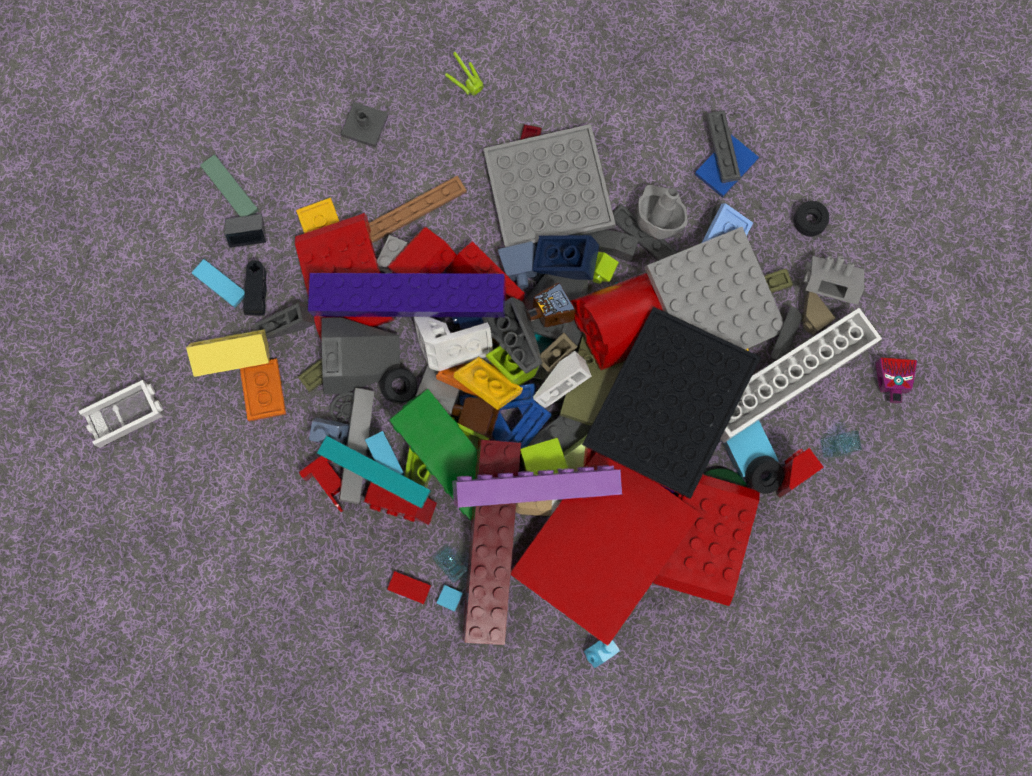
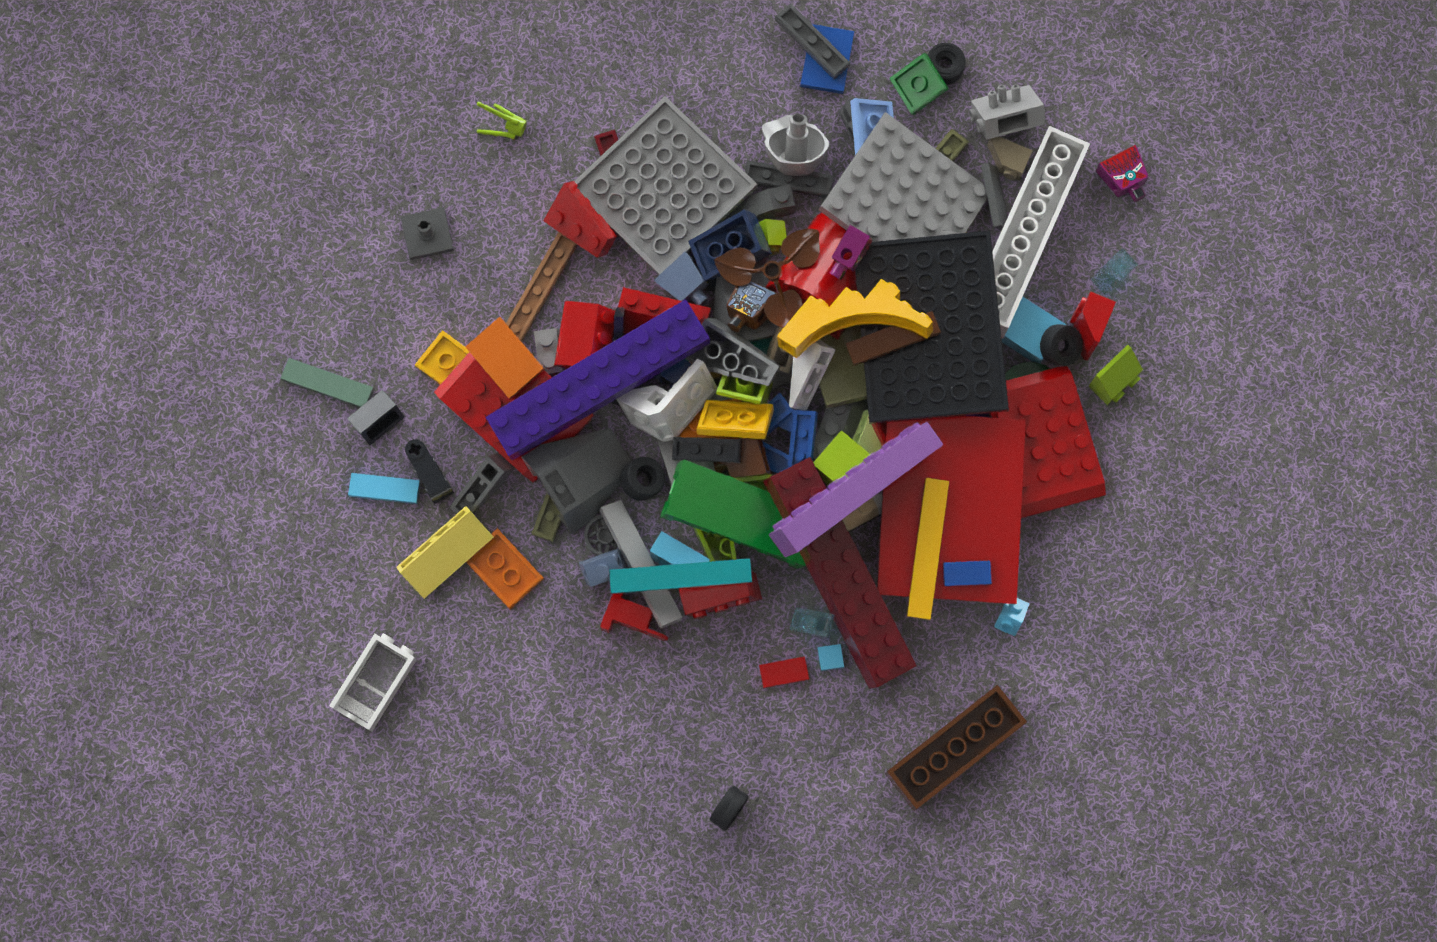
camera: 35 degrees left, 0 degrees up
(303, 661) = (729, 808): none -> black tyre
(354, 240) = (505, 358): none -> orange tile
(452, 264) = (619, 320): none -> black tile
(454, 392) = (707, 449): none -> black tile
(472, 177) = (578, 221): none -> red wedge
(494, 724) = (955, 747): none -> reddish brown brick
(559, 274) = (738, 264): none -> reddish brown plant
(566, 564) = (927, 549): none -> yellow tile
(584, 600) = (967, 573): none -> blue tile
(618, 352) = (850, 308): none -> yellow arch
(638, 393) = (885, 342): none -> reddish brown tile
(653, 308) = (854, 242): none -> magenta torso
(782, 221) = (919, 83): none -> green tile
(793, 523) = (1116, 376): none -> lime slope

